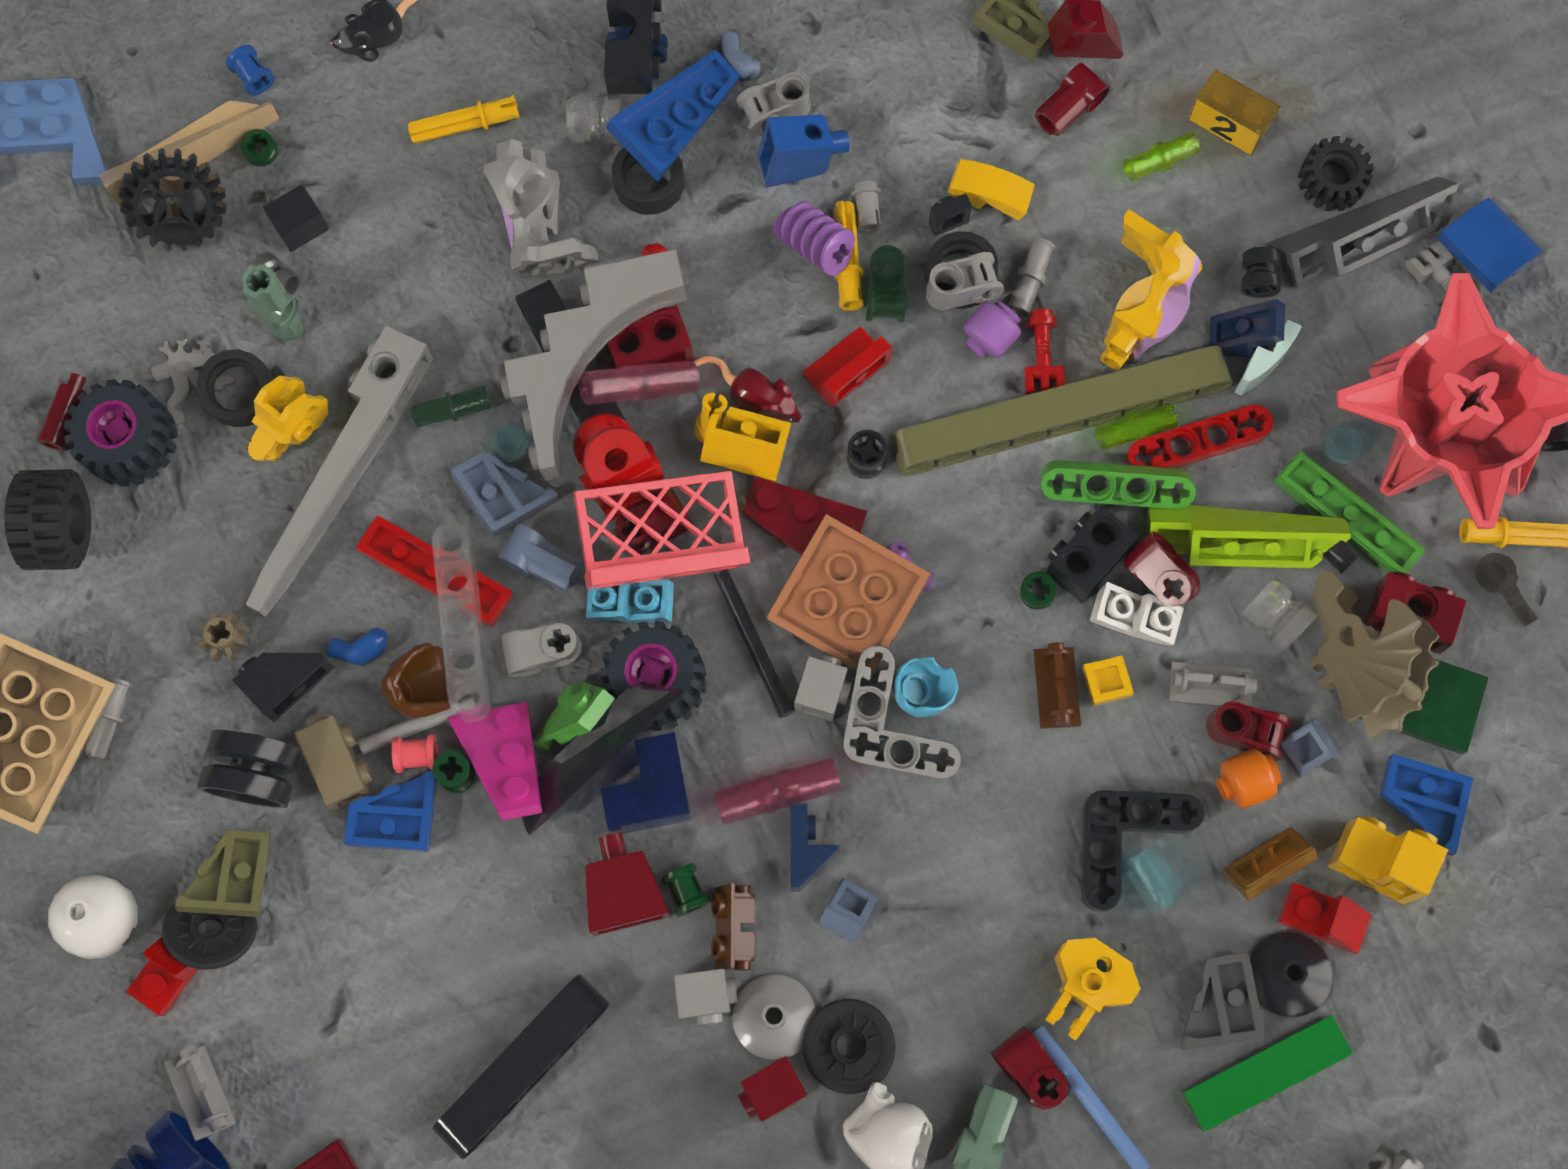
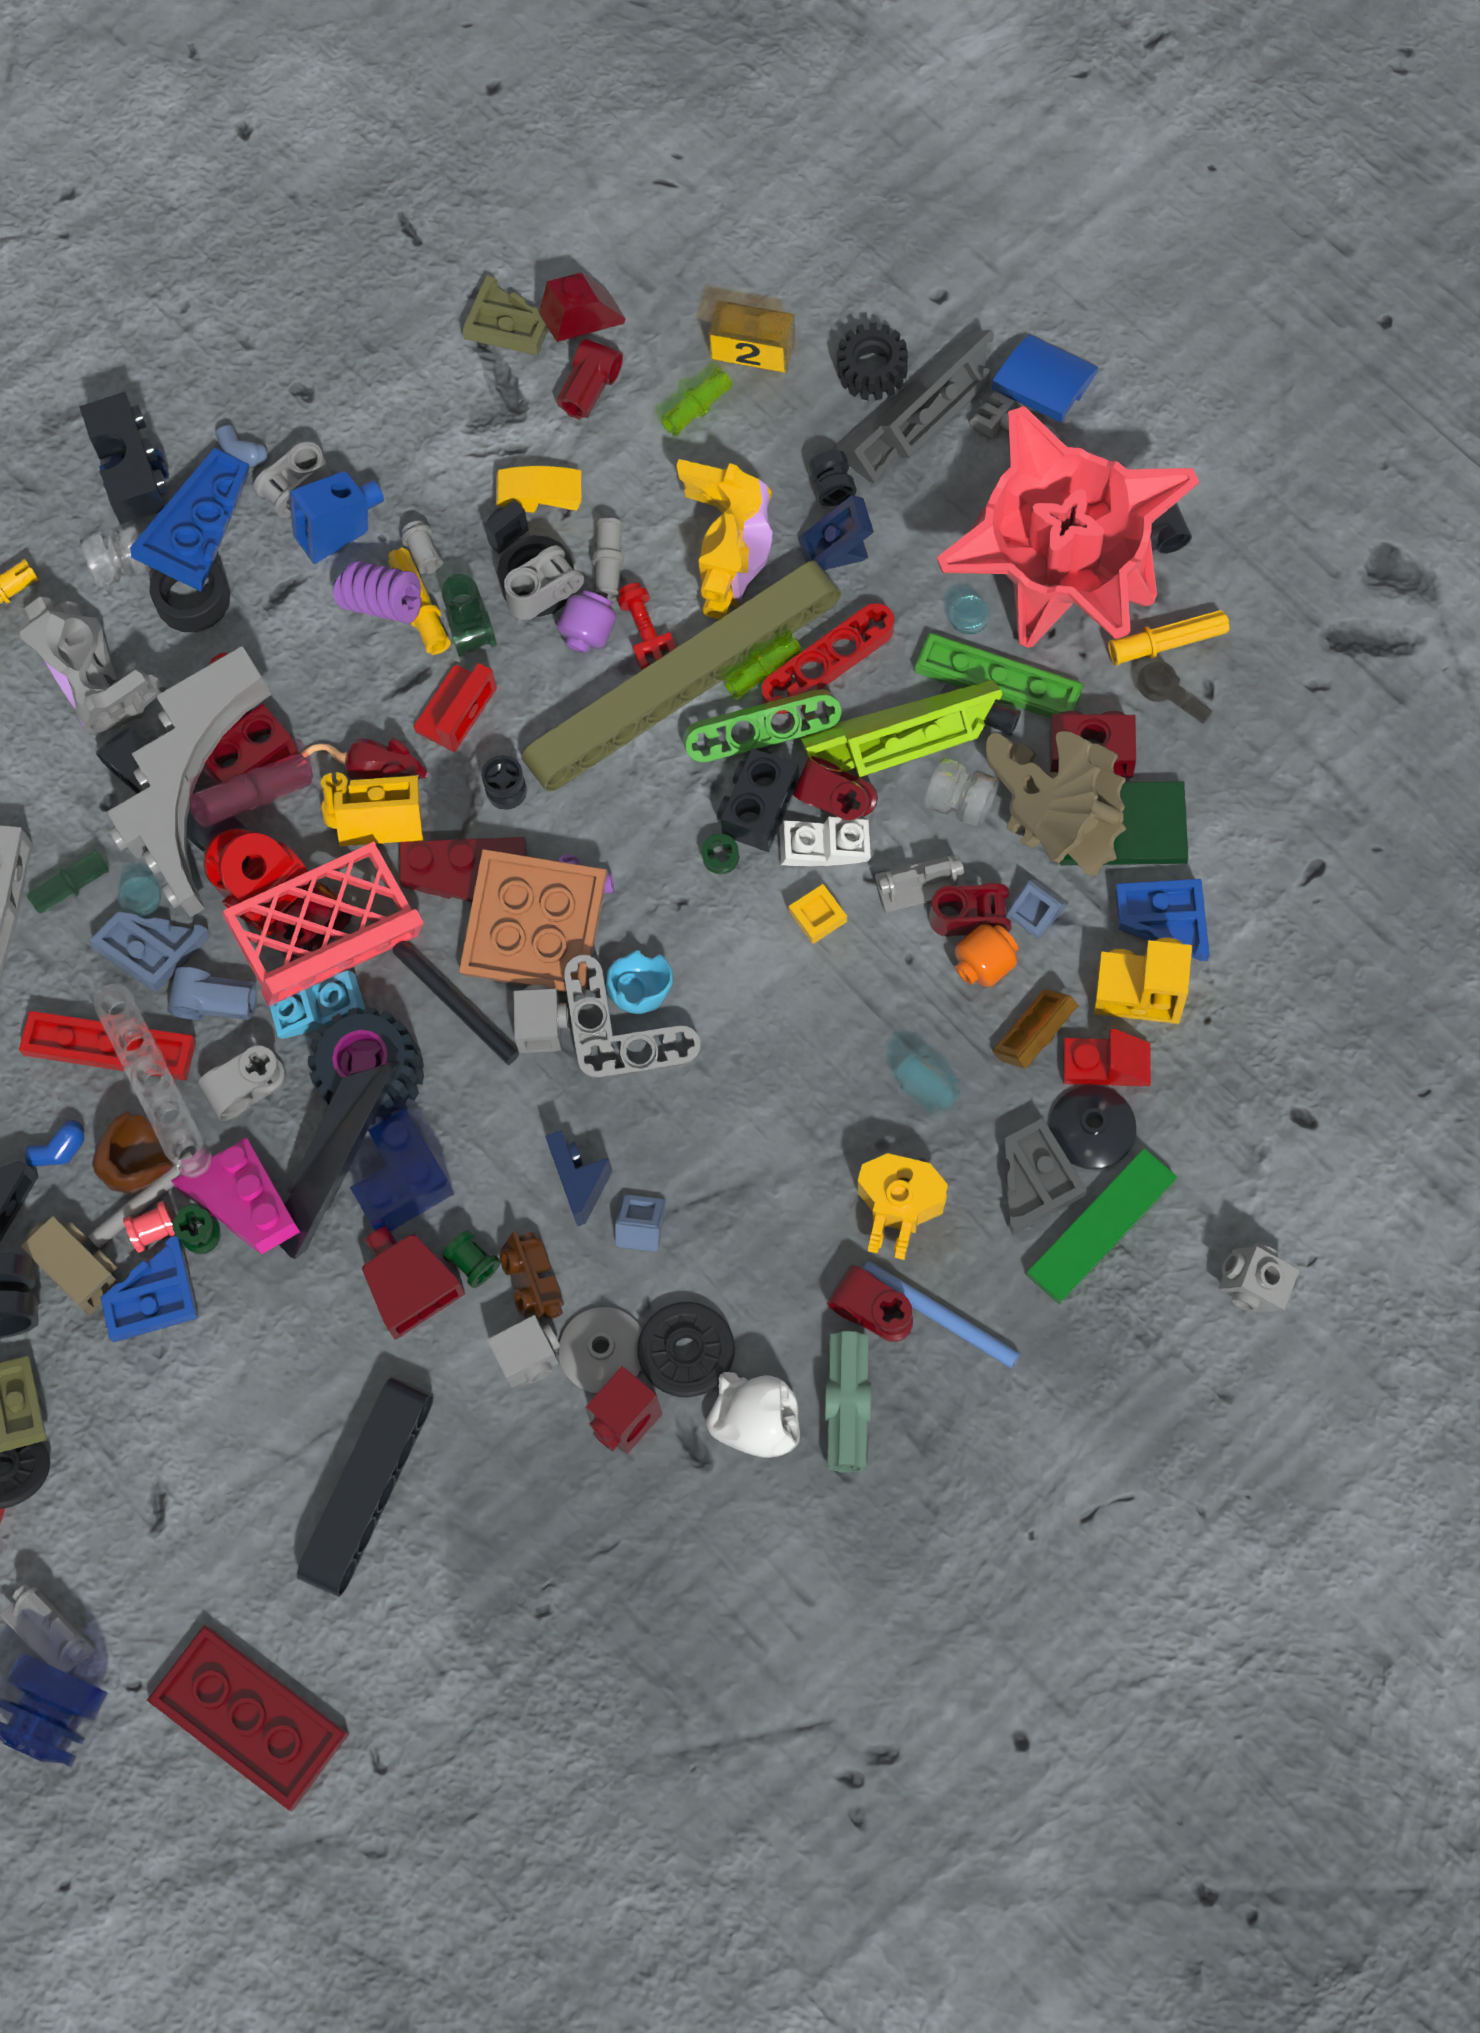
camera: 15 degrees left, 5 degrees down
(577, 713) = (300, 1126): bright green wing -> none
(777, 790) = (527, 1133): clear pink axle -> none
(1057, 686) = (770, 937): reddish brown hinge -> none
(1111, 831) = (871, 1052): black beam -> none
(1265, 361) = (866, 561): light aqua slope -> none

